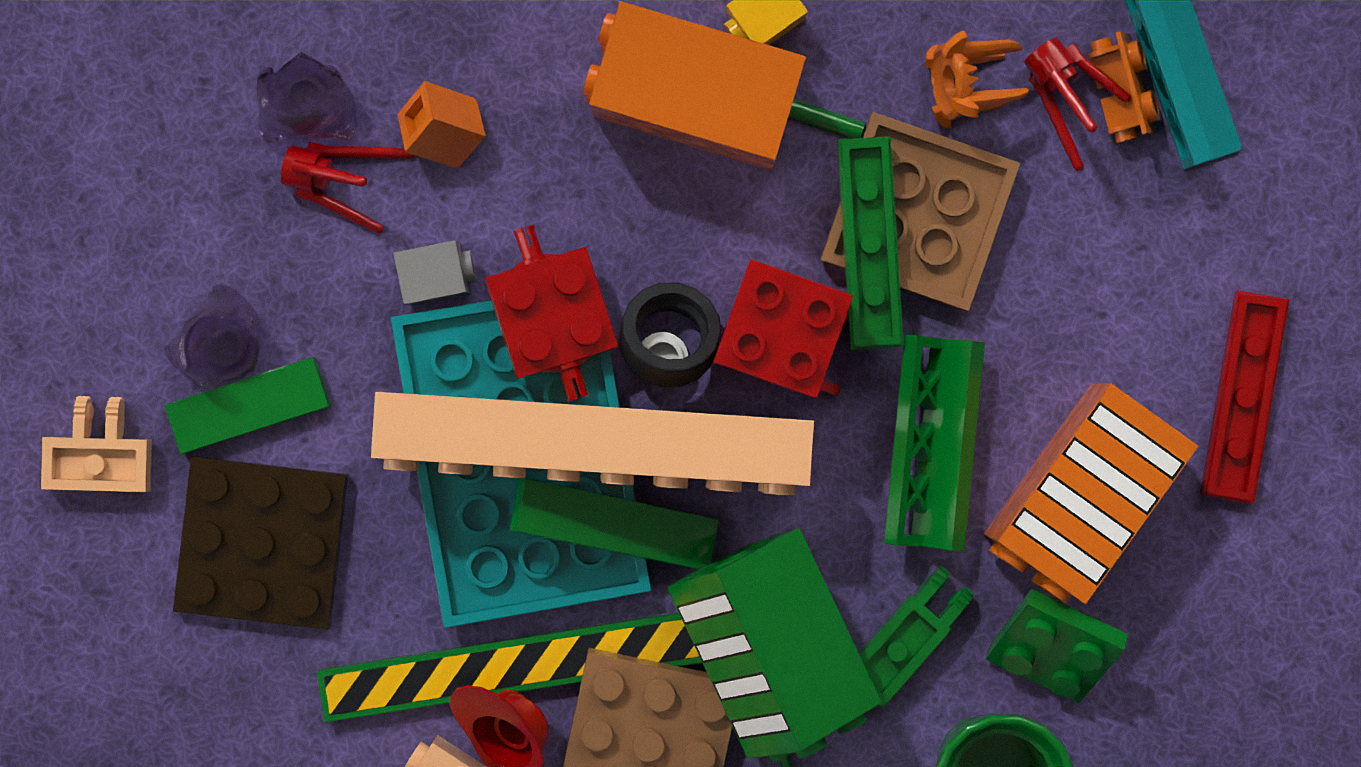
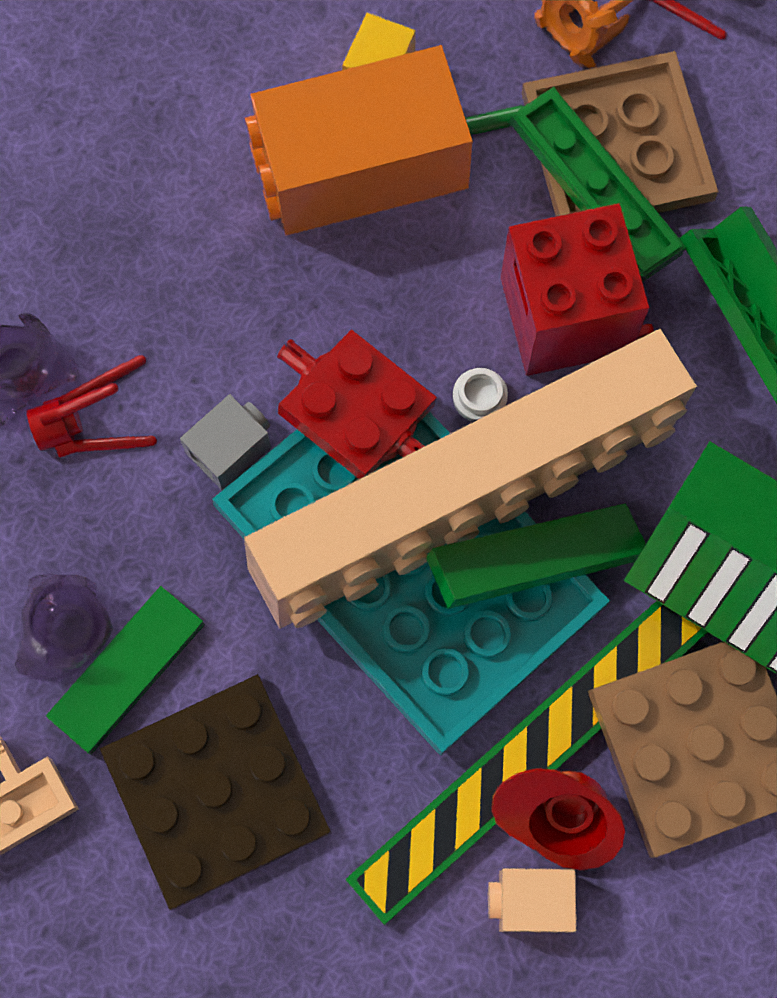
camera: 30 degrees left, 15 degrees down
(441, 125) = (154, 314): orange panel -> none
(684, 301) = (475, 333): black tyre -> none

